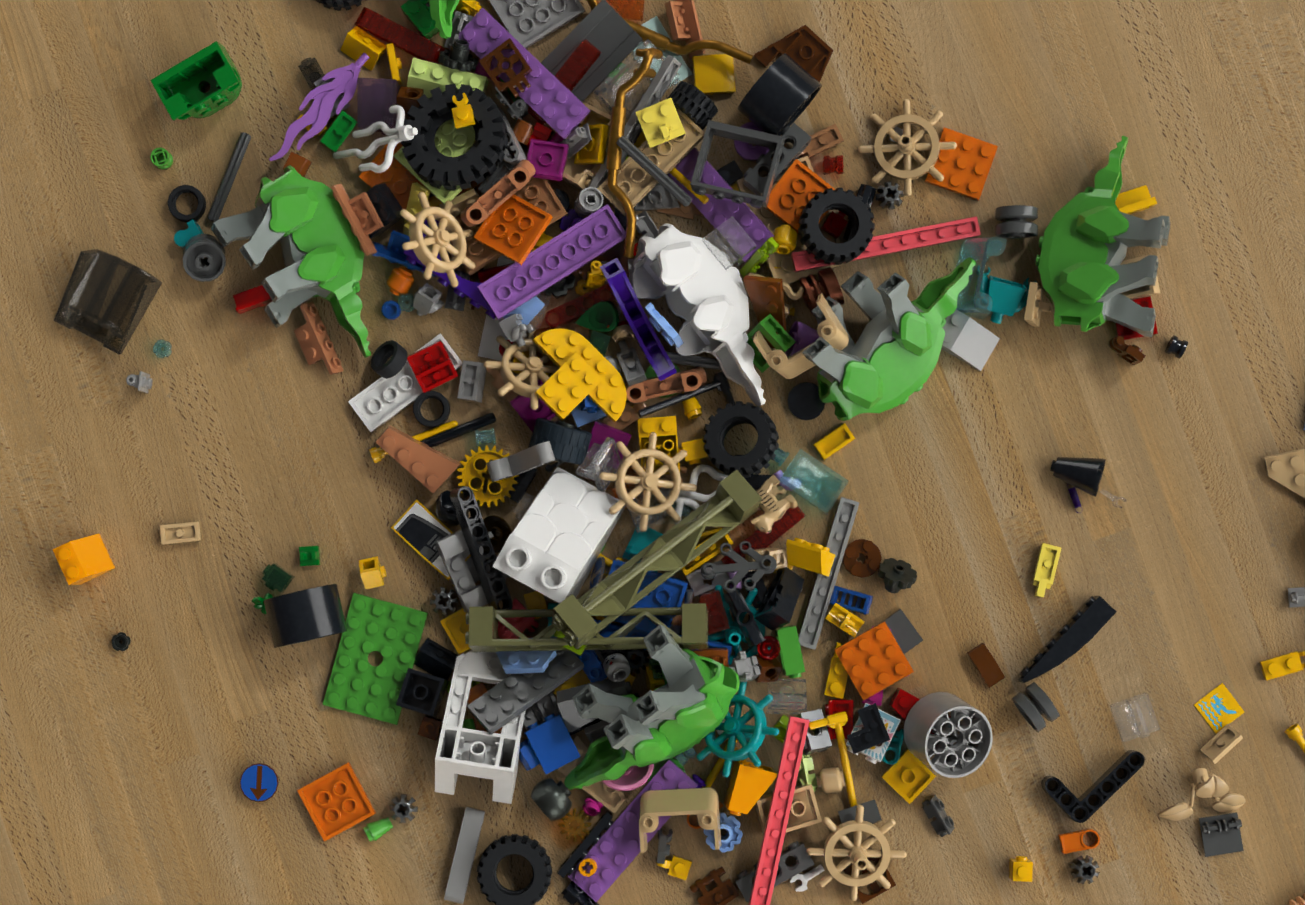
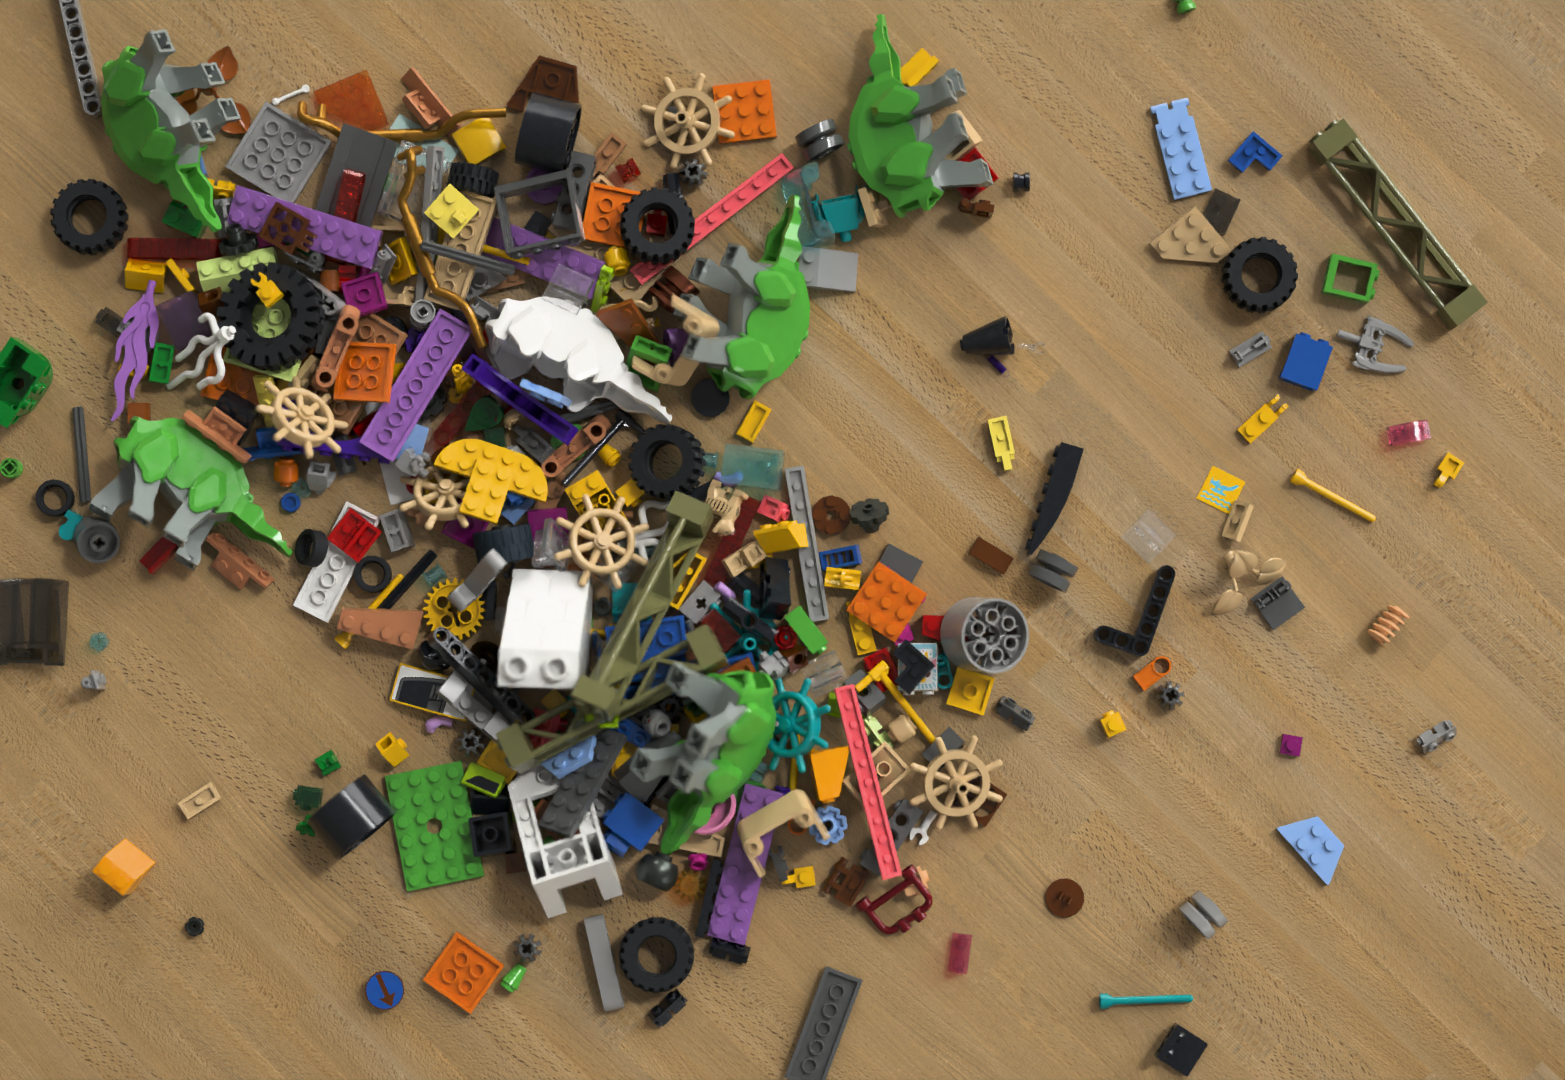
camera: 25 degrees left, 0 degrees up
(423, 566) = (437, 720): none -> lavender arm
(438, 640) = (483, 780): none -> lime slope
(583, 863) = (726, 918): light orange bush -> none
(625, 539) = (603, 601): none -> pearl dark grey plate
(741, 566) = (724, 576): dark grey plant -> none
(814, 528) = (774, 509): none -> coral bracket

